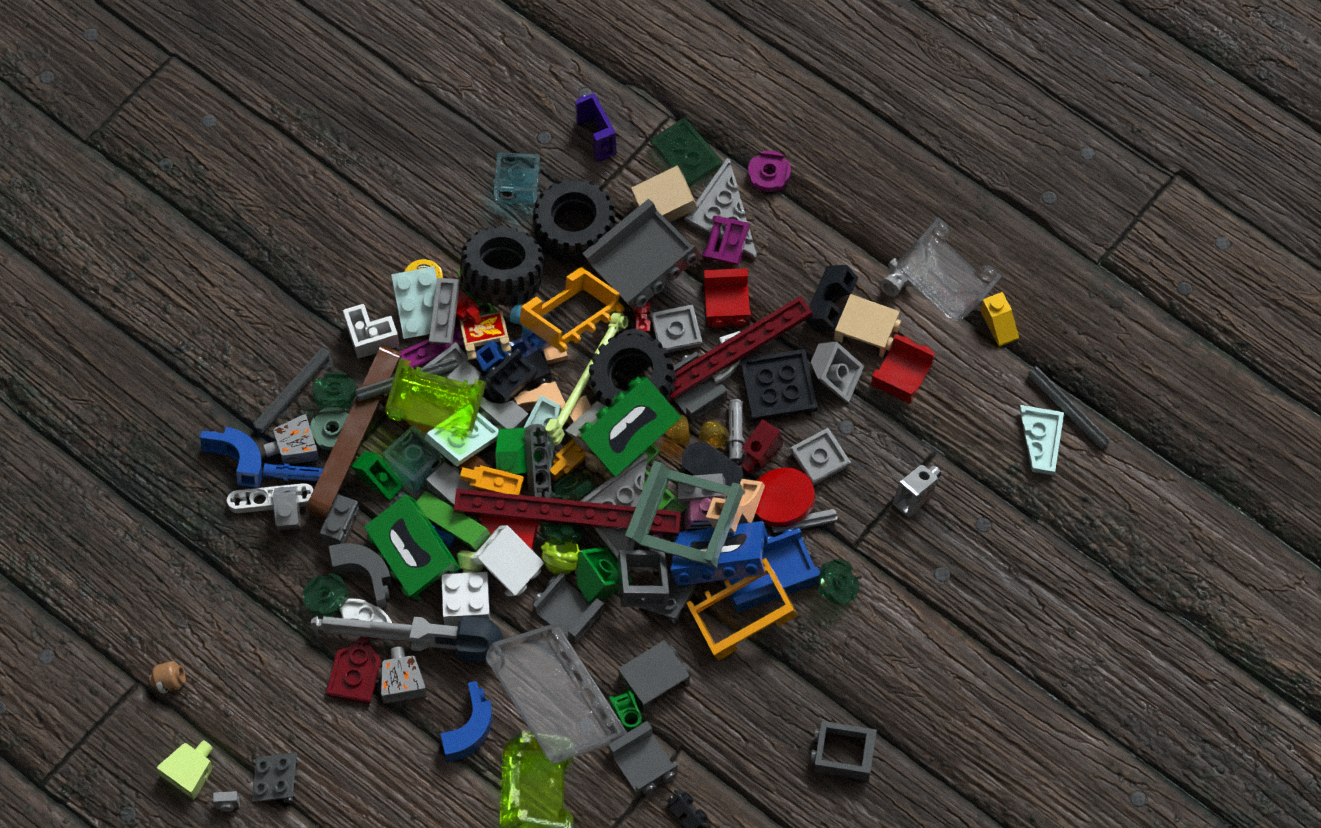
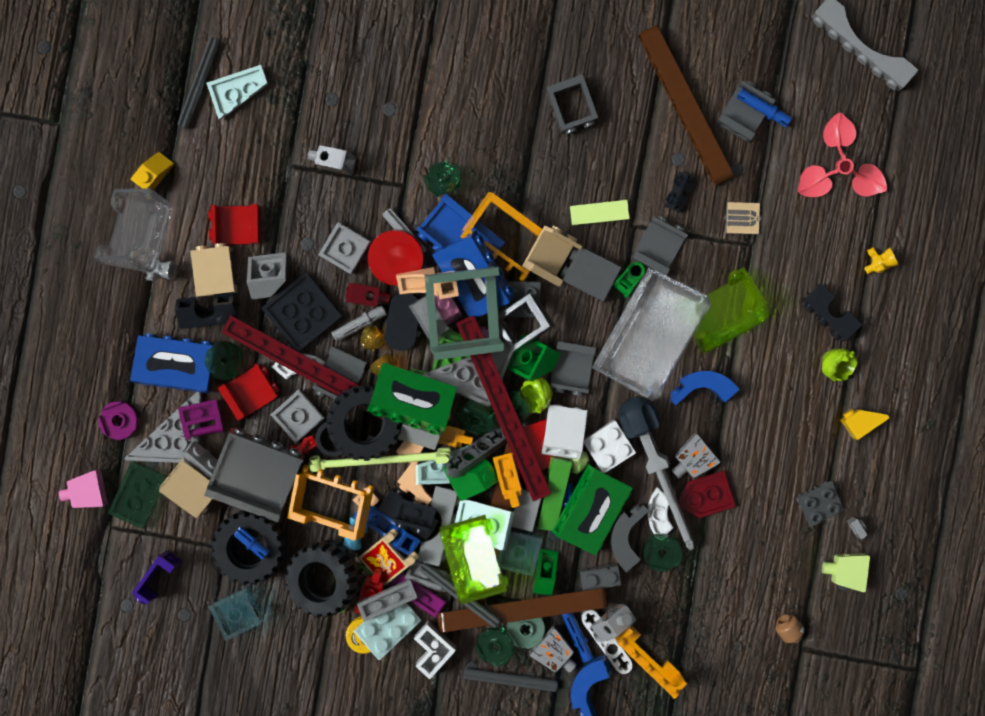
camera: 115 degrees left, 25 degrees up
(200, 538) = (667, 675): none -> light orange hinge
(575, 217) = (251, 543): none -> blue axle
(689, 220) = (200, 458): none -> light grey hinge
(696, 640) = (550, 254): none -> tan panel
(714, 721) = (599, 212): none -> yellowish green tile
(717, 110) = (85, 491): none -> bright pink torso
(783, 285) = (233, 360): none -> clear green plate
(796, 243) = (171, 363): none -> blue panel

